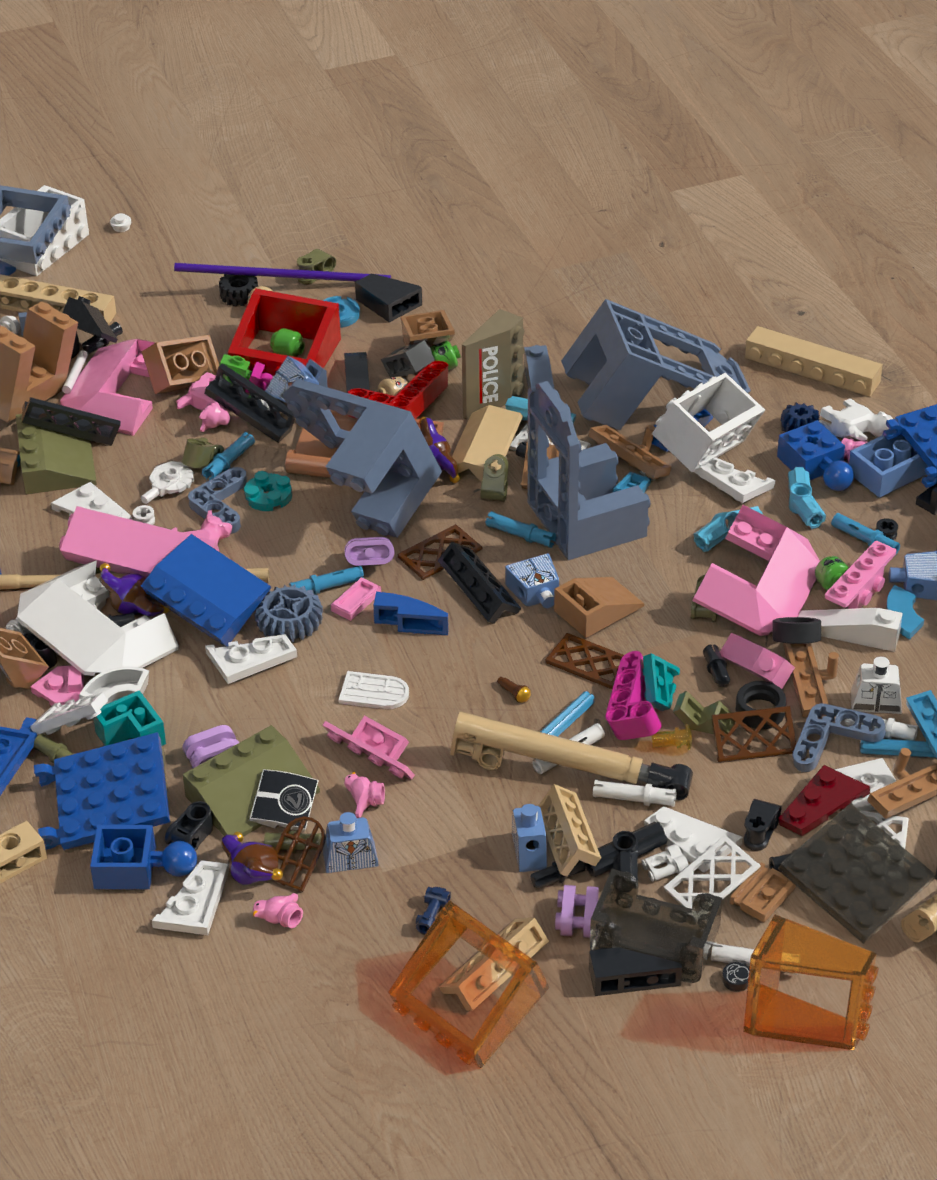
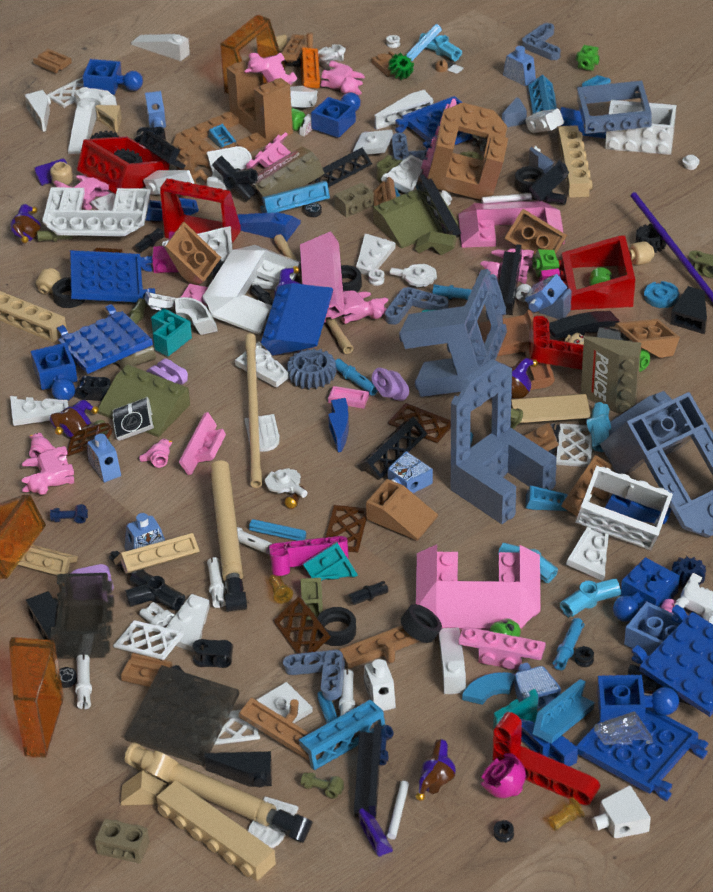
camera: 70 degrees right, 0 degrees up
(116, 447) = (441, 242): none -> olive slope
(200, 452) = (449, 275): olive piece -> none
(223, 652) = (255, 472): none -> tan piece
(338, 907) = (53, 471): none -> bright pink animal
(488, 687) = (285, 481): none -> white piece
(757, 660) = (374, 615): bright pink slope -> none
(820, 798) = (253, 681): dark red wing -> none

